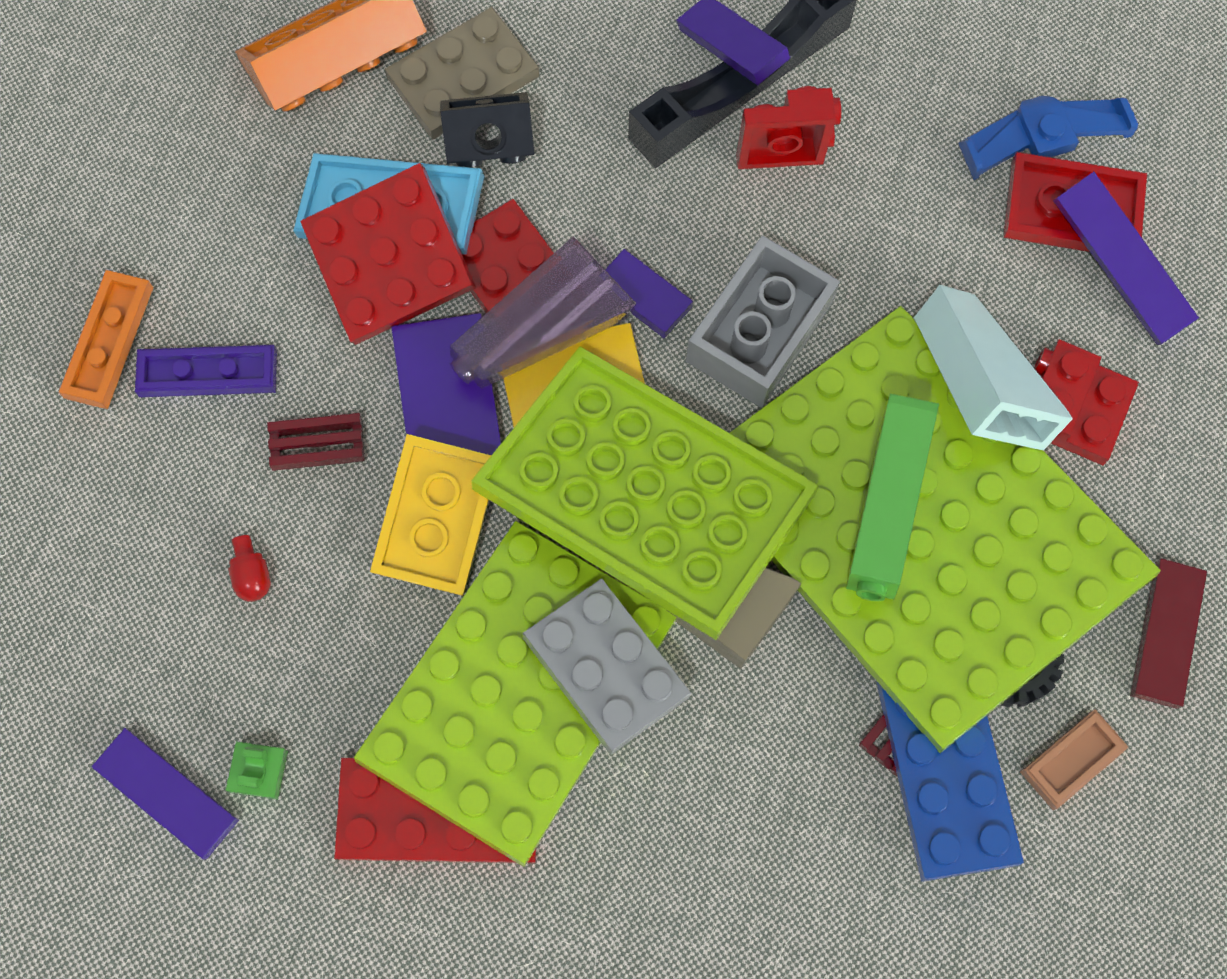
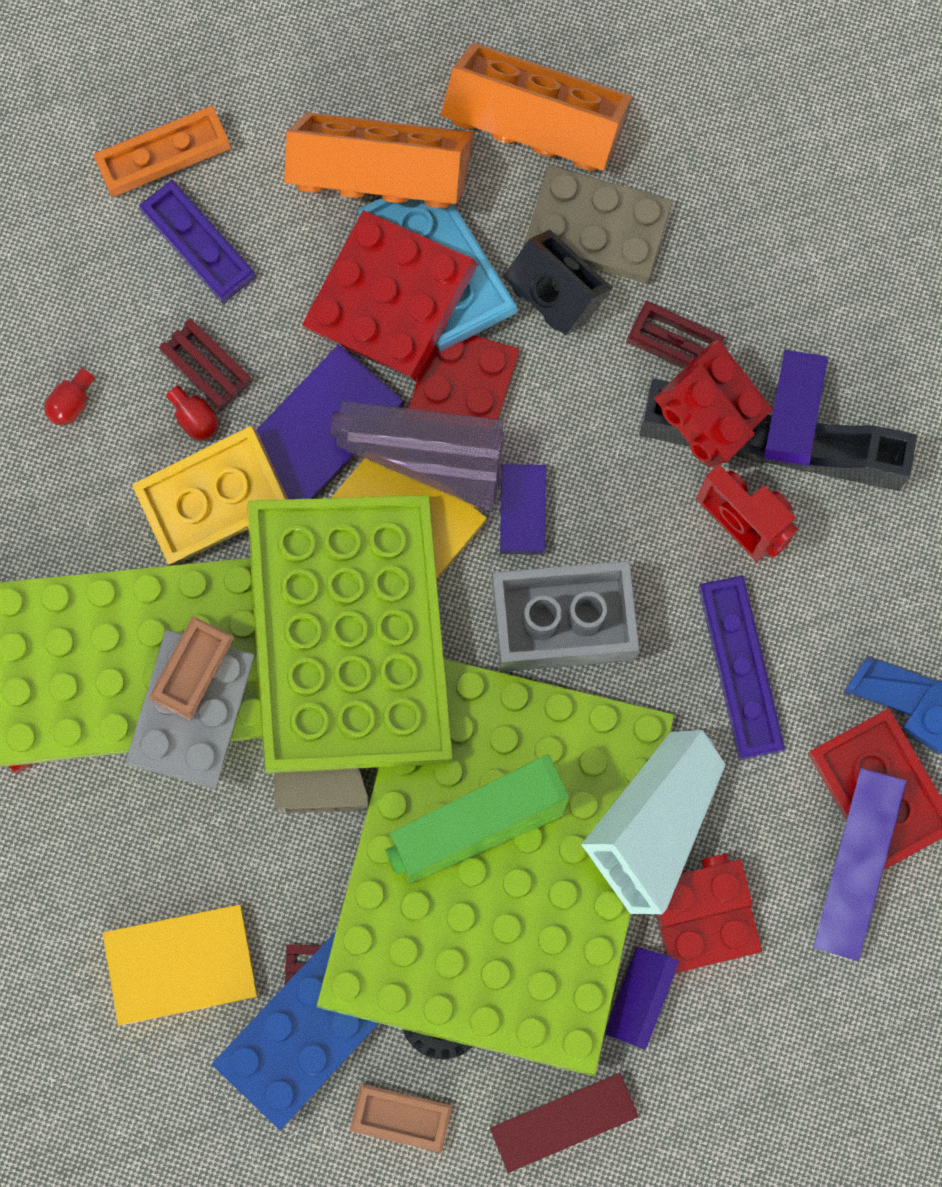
camera: 50 degrees right, 5 degrees up
(270, 179) = (378, 159): none -> orange slope
(351, 481) = (193, 415): none -> red cylinder
(577, 633) = (191, 668): none -> nougat tile
(603, 94) = (680, 323): none -> dark red tile
(689, 85) = (713, 405): none -> red plate
(811, 846) = (180, 965): none -> yellow tile
(899, 233) = (741, 668): none -> dark purple tile
(1114, 492) = (641, 997): none -> dark purple tile

